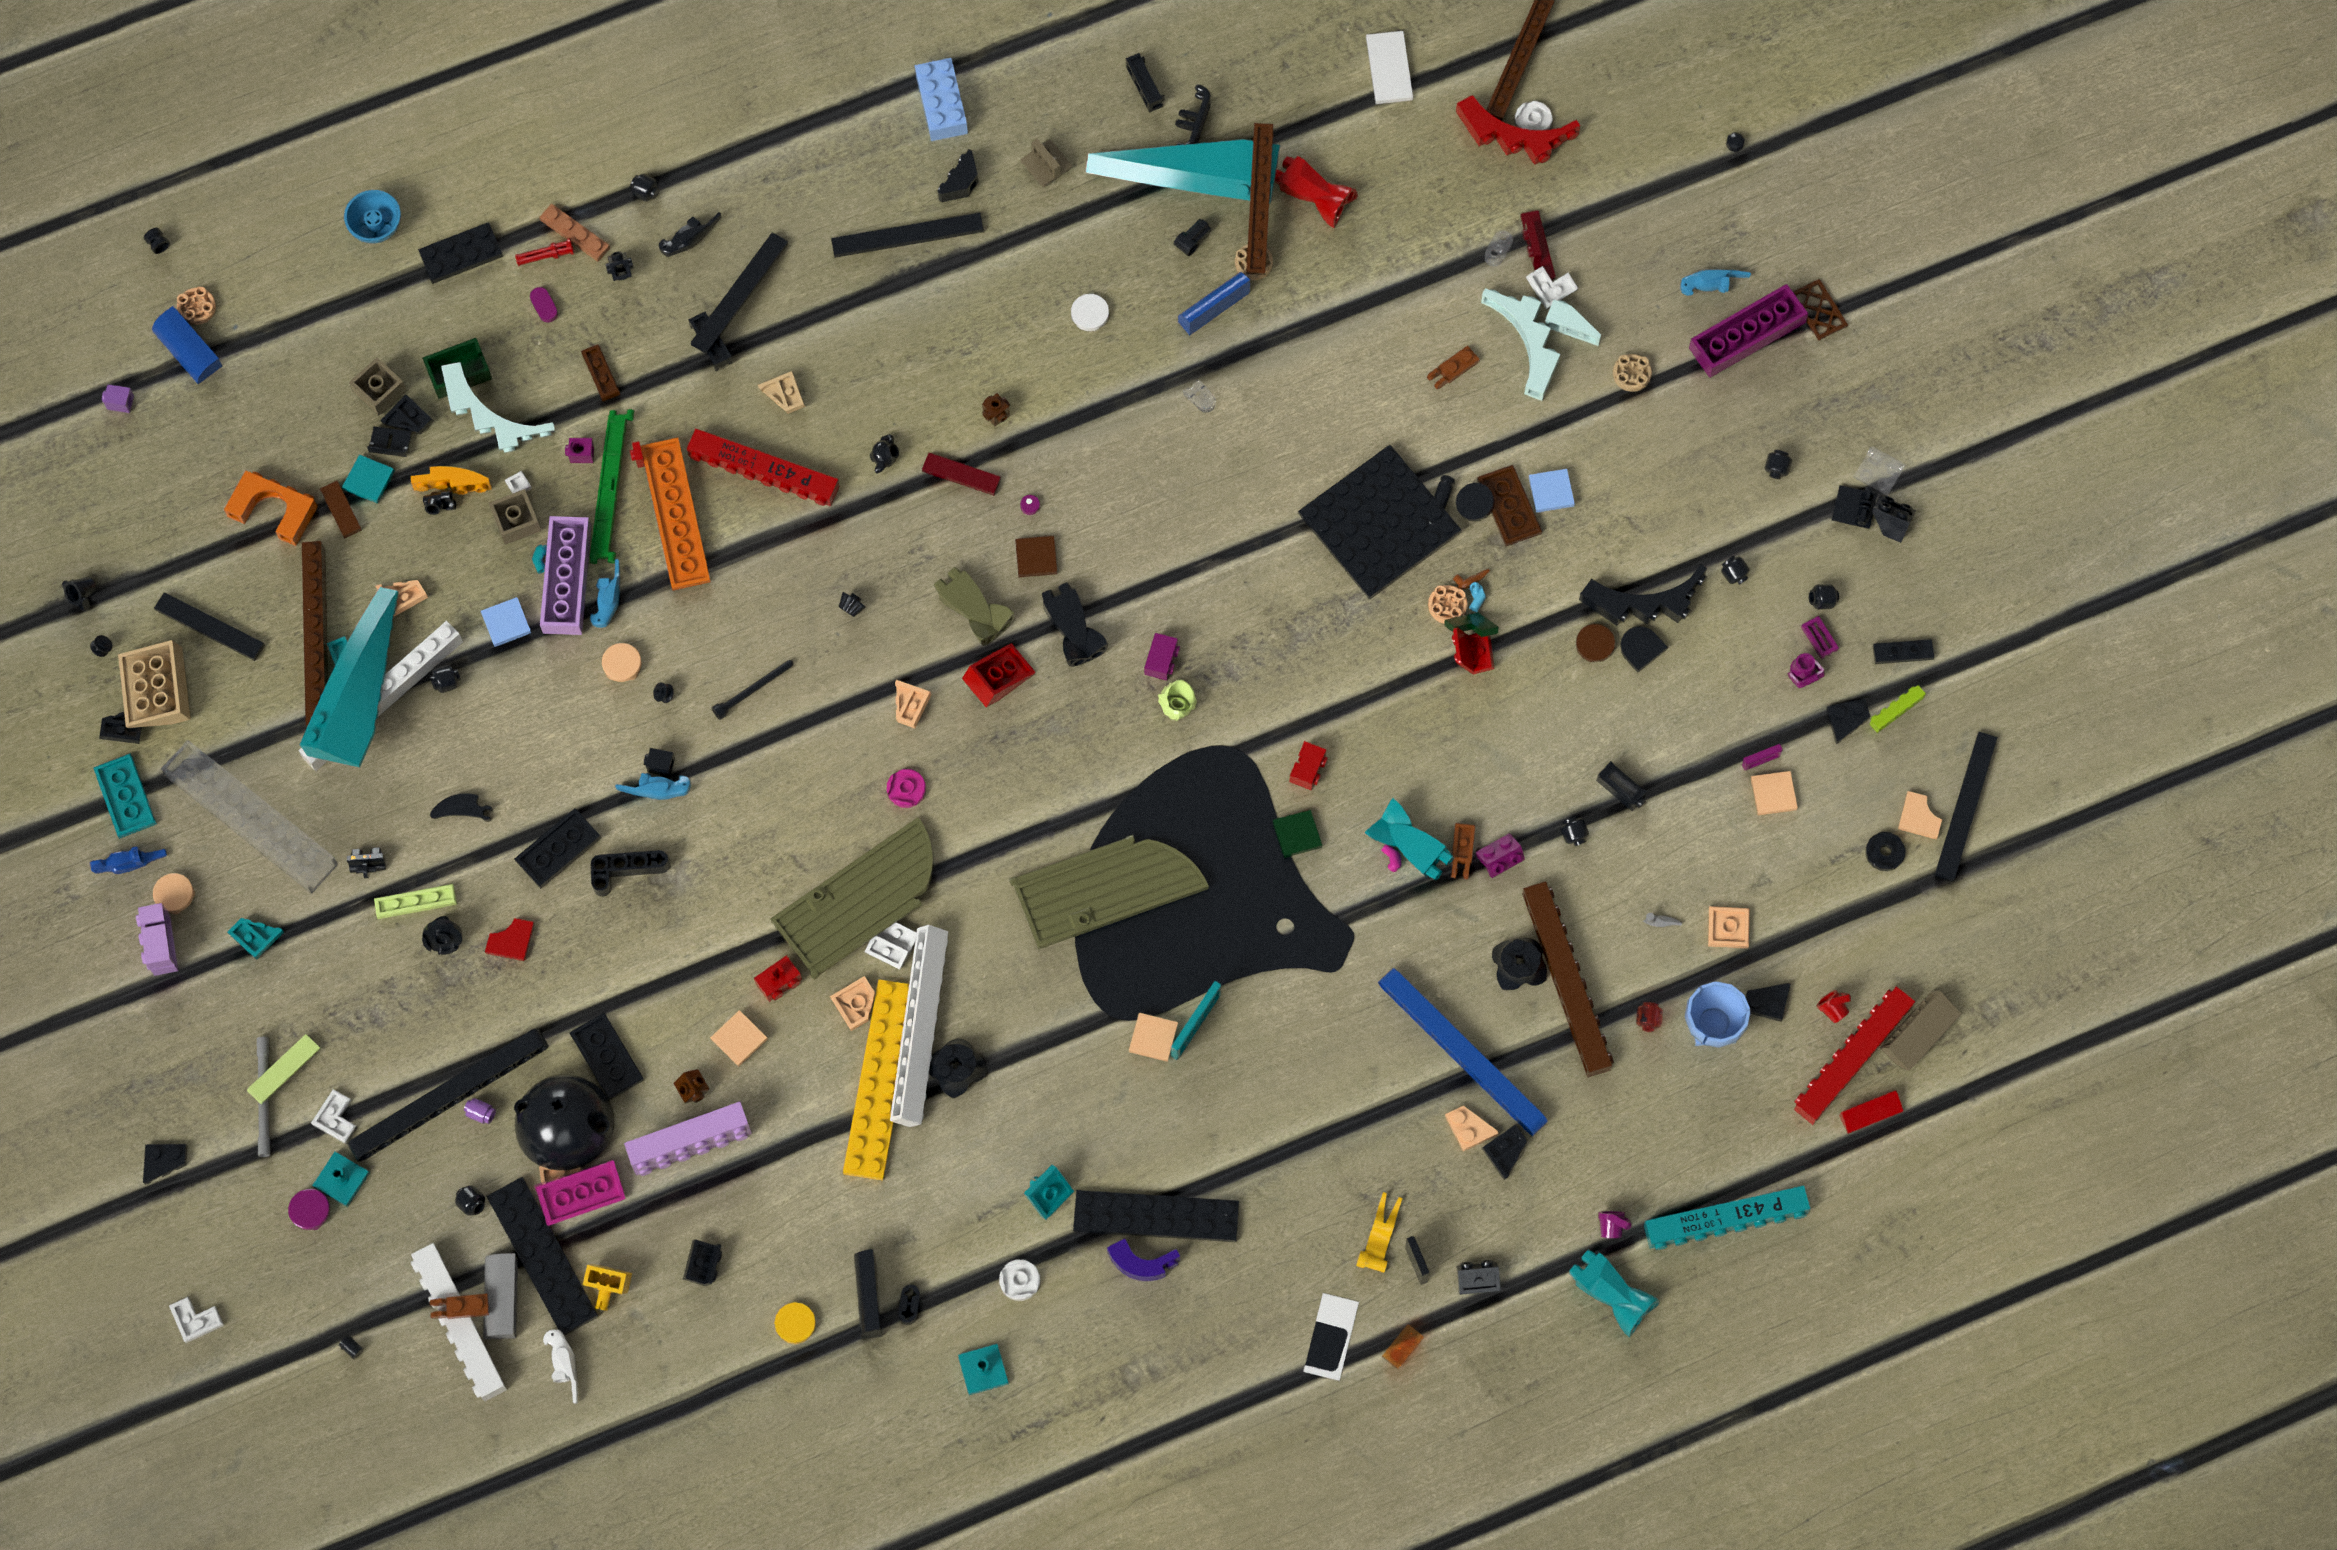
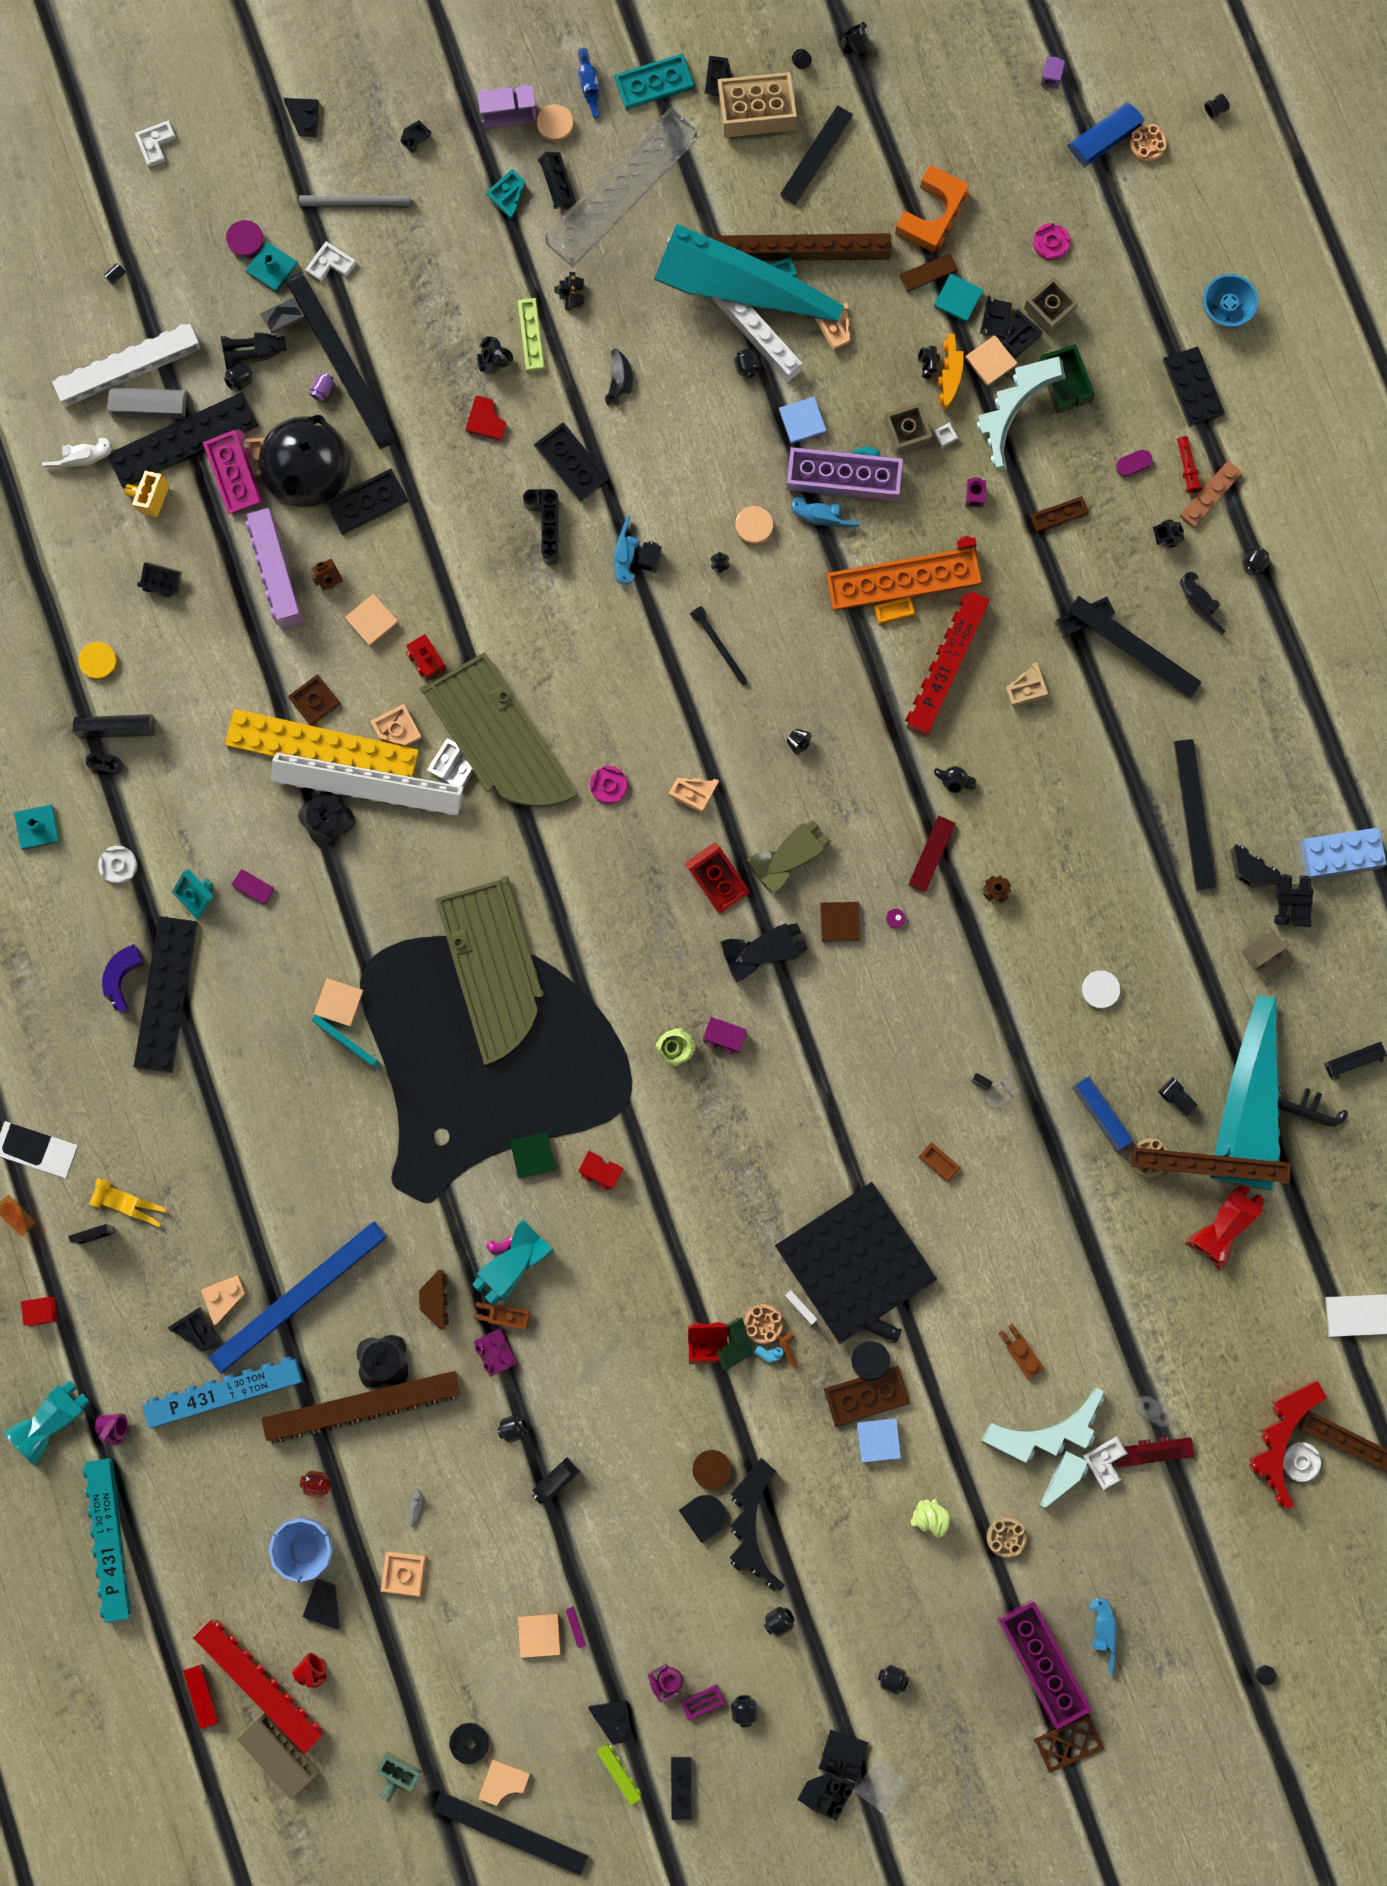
camera: 90 degrees right, 10 degrees up
(188, 1038) = (414, 135): none -> black bracket
(240, 884) = (557, 180): none -> black container
(283, 1069) = (377, 217): yellowish green tile -> none
(304, 393) = (1051, 241): none -> dark pink tile
(399, 1159) = (282, 315): none -> dark grey piece
(435, 1176) = (264, 344): none -> black piece
(437, 443) = (991, 360): none -> light nougat tile
(461, 1306) = (134, 365): dark orange hinge -> none
(609, 486) = (937, 519): green piece -> none
(708, 523) = (894, 610): none -> light orange tile
(829, 1092) = (314, 700): none -> reddish brown tile
(988, 135) = (1295, 895): none -> black hips
(1035, 1136) = (253, 886): none -> magenta tile
(1190, 414) = (982, 1081): none -> black tile
(1273, 451) = (939, 1162): none -> dark orange tile
(1430, 566) = (800, 1308): none -> white tile
(1452, 916) = (433, 1300): none -> reddish brown slope
(1478, 1277) = (74, 1292): black bracket -> none
(1501, 1310) = (39, 1311): none -> red piece
(1567, 1116) = (223, 1393): none -> dark azure brick
(1621, 436) = (931, 1517): none -> yellowish green hair
(1924, 912) = (398, 1774): none -> sand green brick

